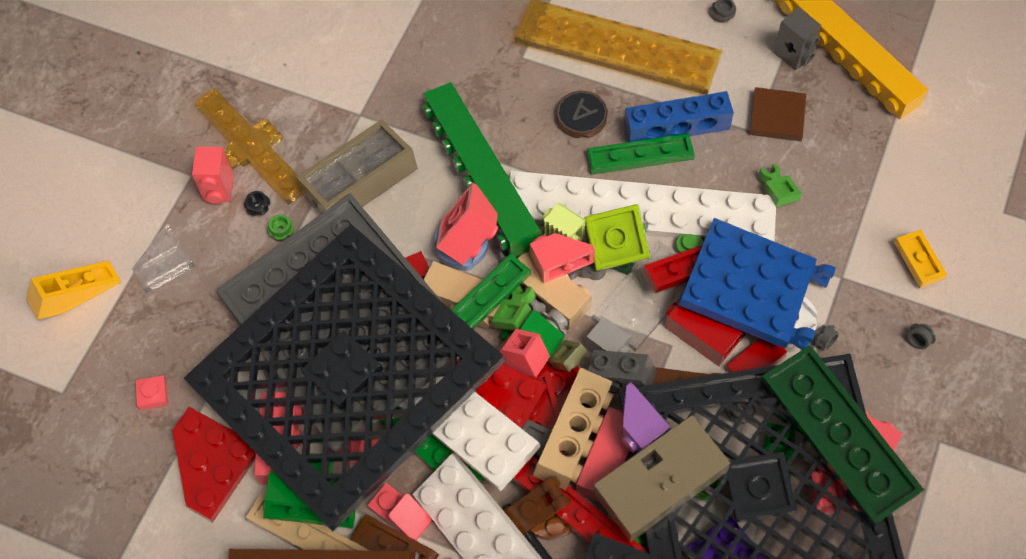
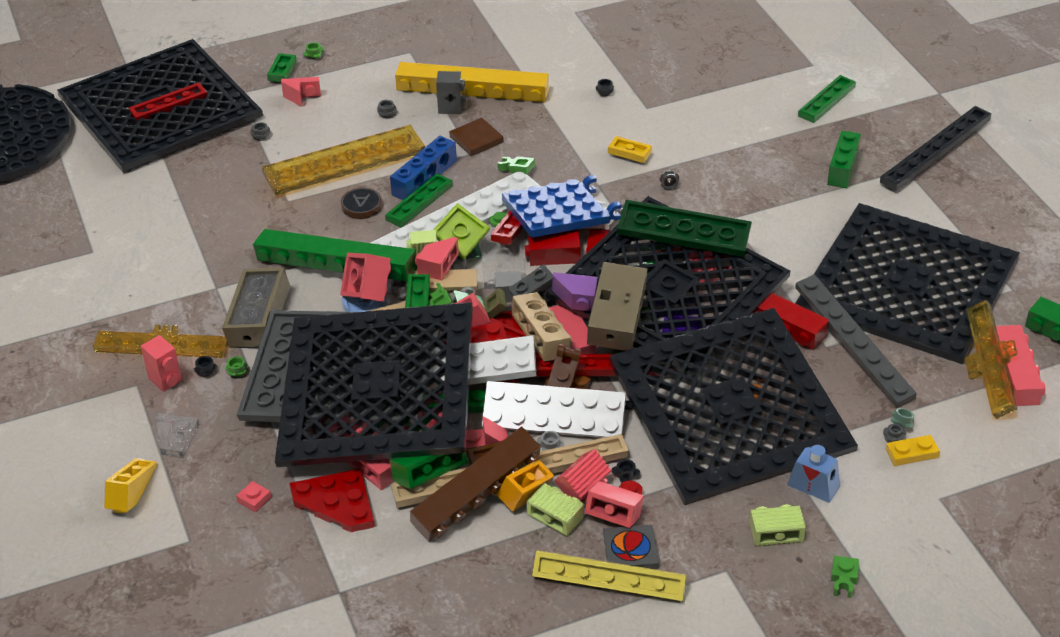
camera: 45 degrees left, 20 degrees down
(983, 144) = (605, 87): none -> black plate

